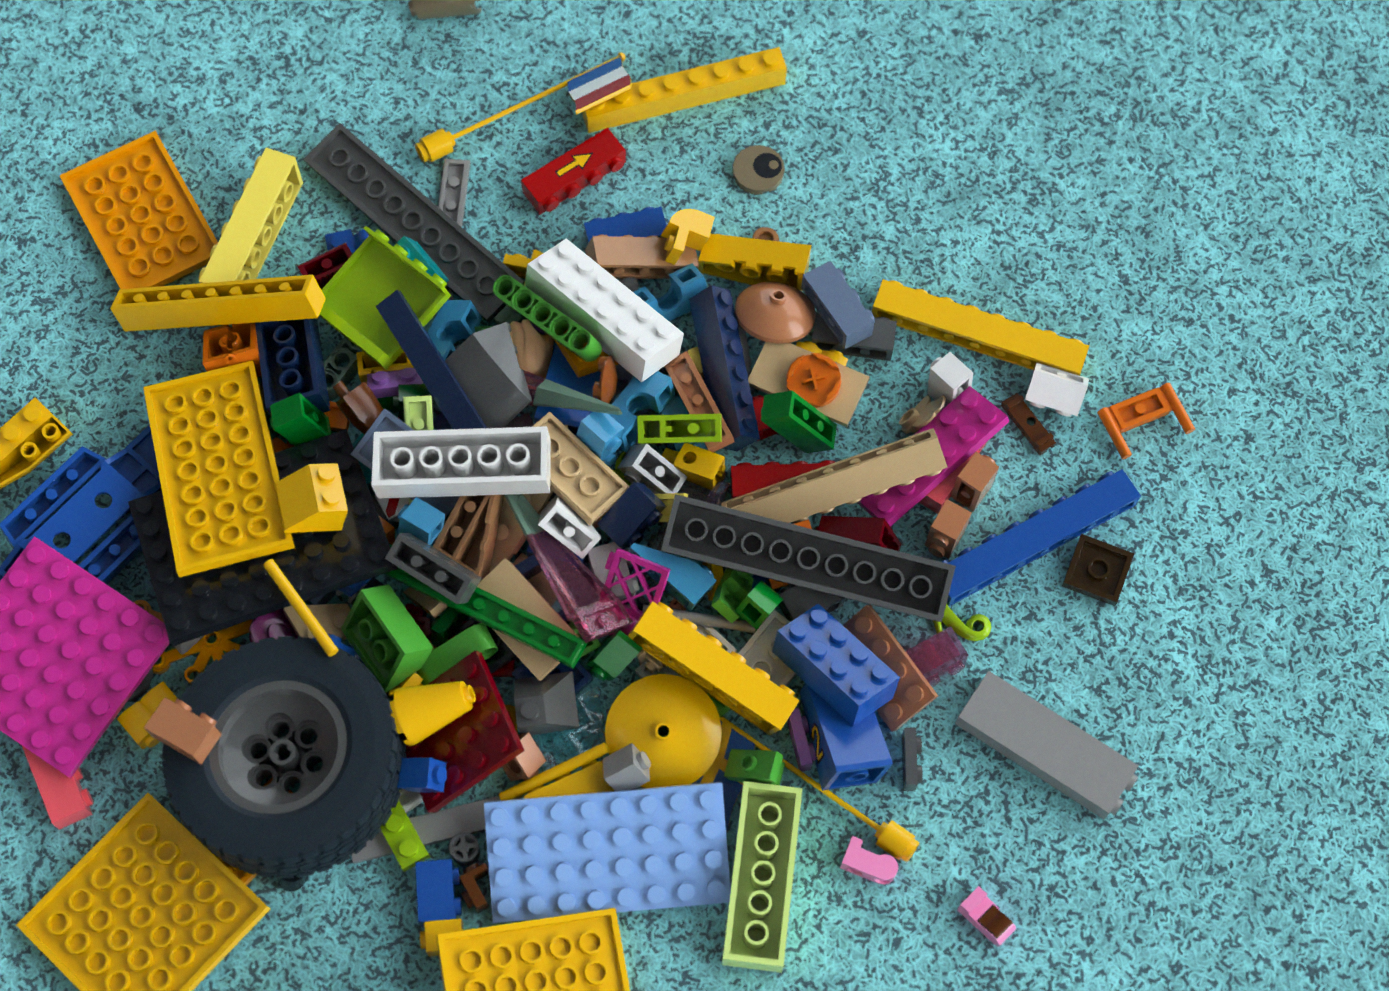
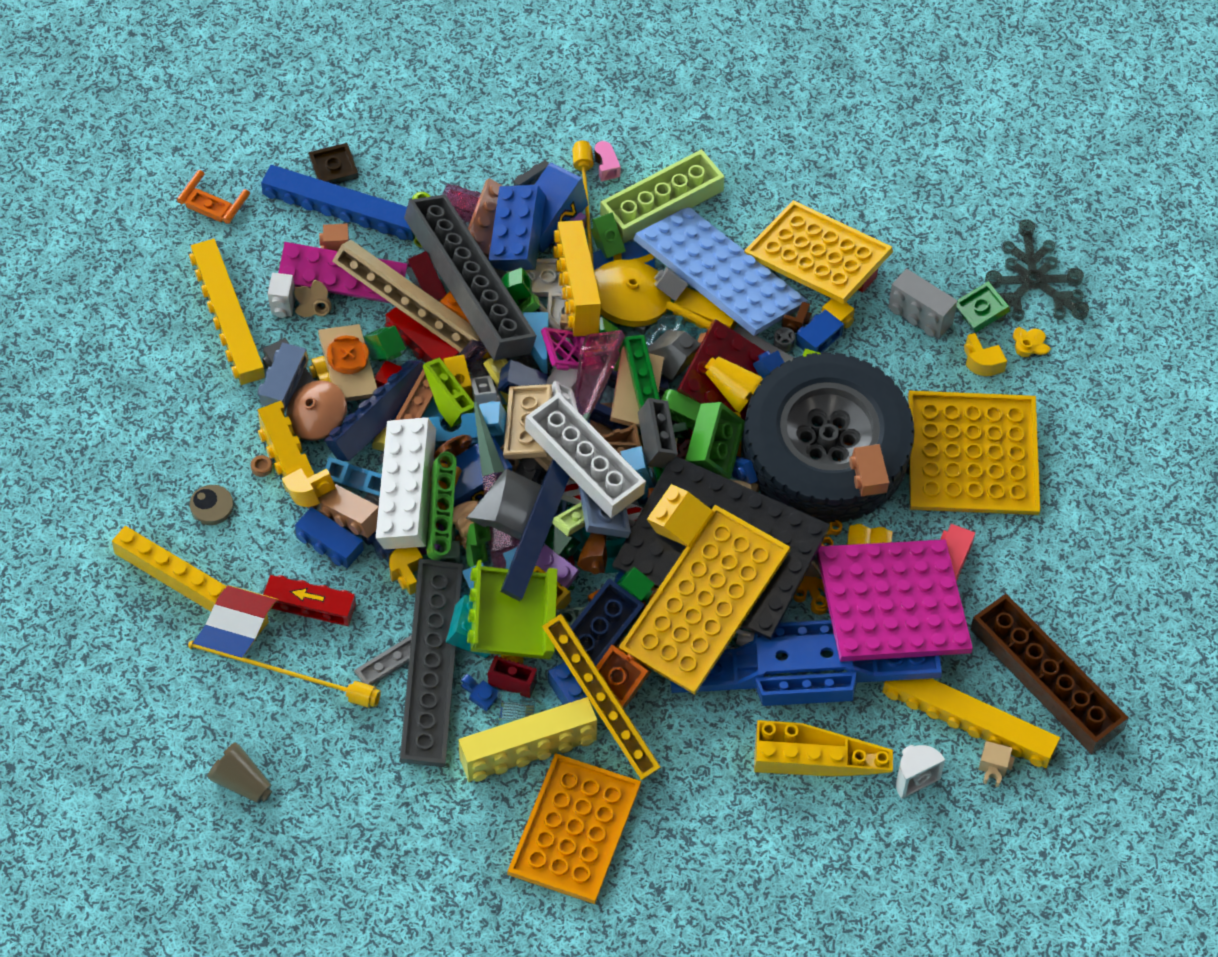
camera: 130 degrees left, 10 degrees down
(294, 249) = (513, 707): none -> clear light blue piece
(300, 607) = (745, 478): yellow bar -> none
(947, 529) = (381, 237): nougat brick -> none
(986, 917) = (583, 96): bright pink leg -> none
(1036, 433) = (269, 246): reddish brown piece -> none
(1048, 745) = (463, 126): light grey brick -> none
(1056, 390) = (234, 246): white brick -> none

